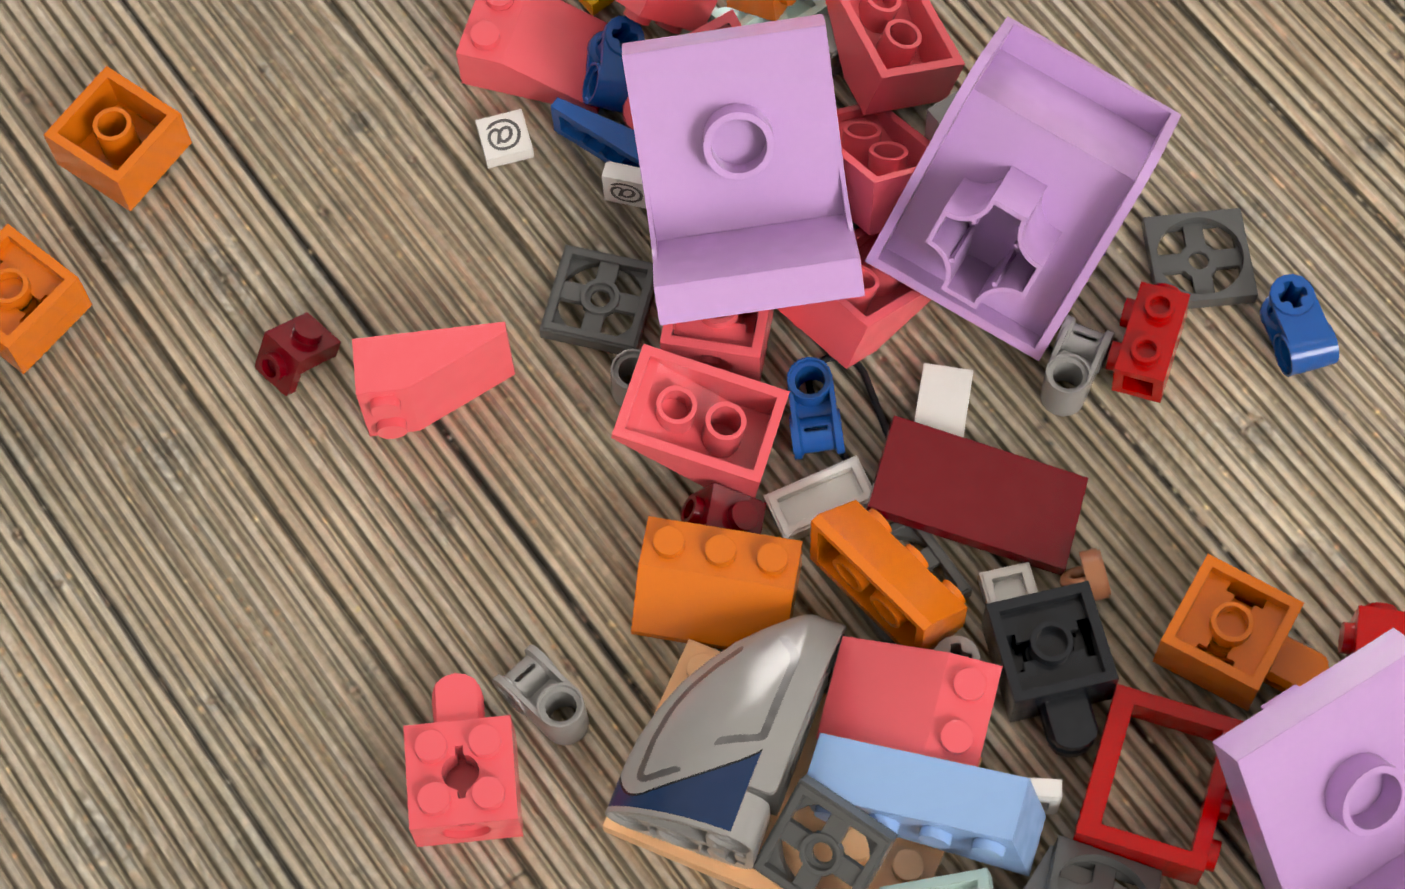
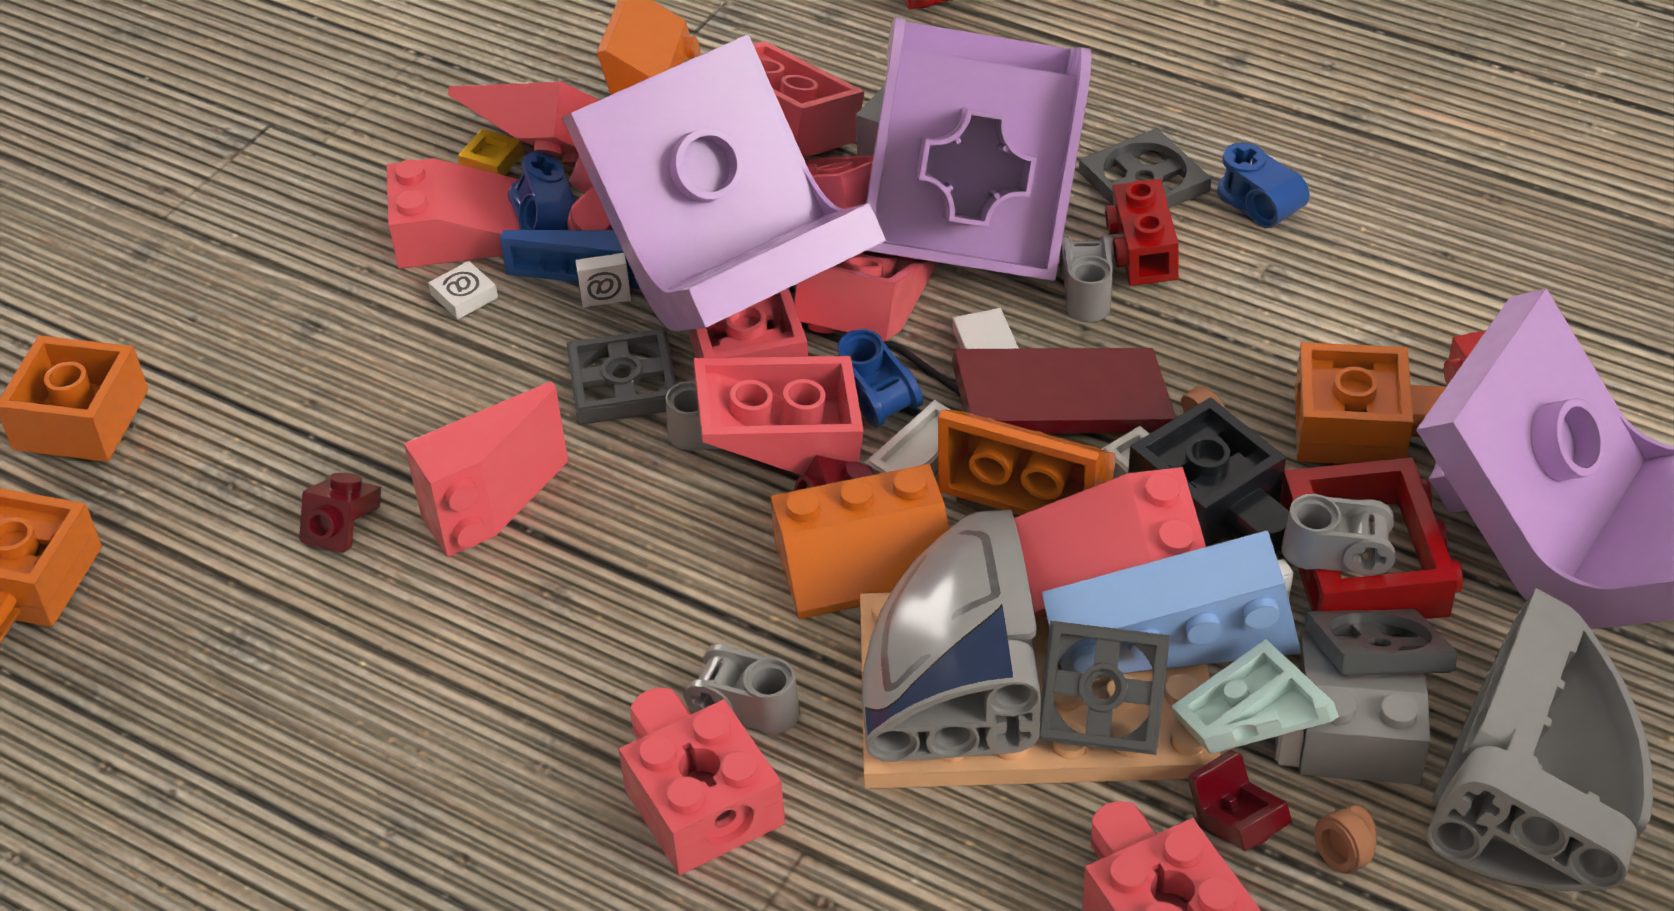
camera: 25 degrees left, 20 degrees down
(1121, 787) = (1335, 534): none -> light grey piece

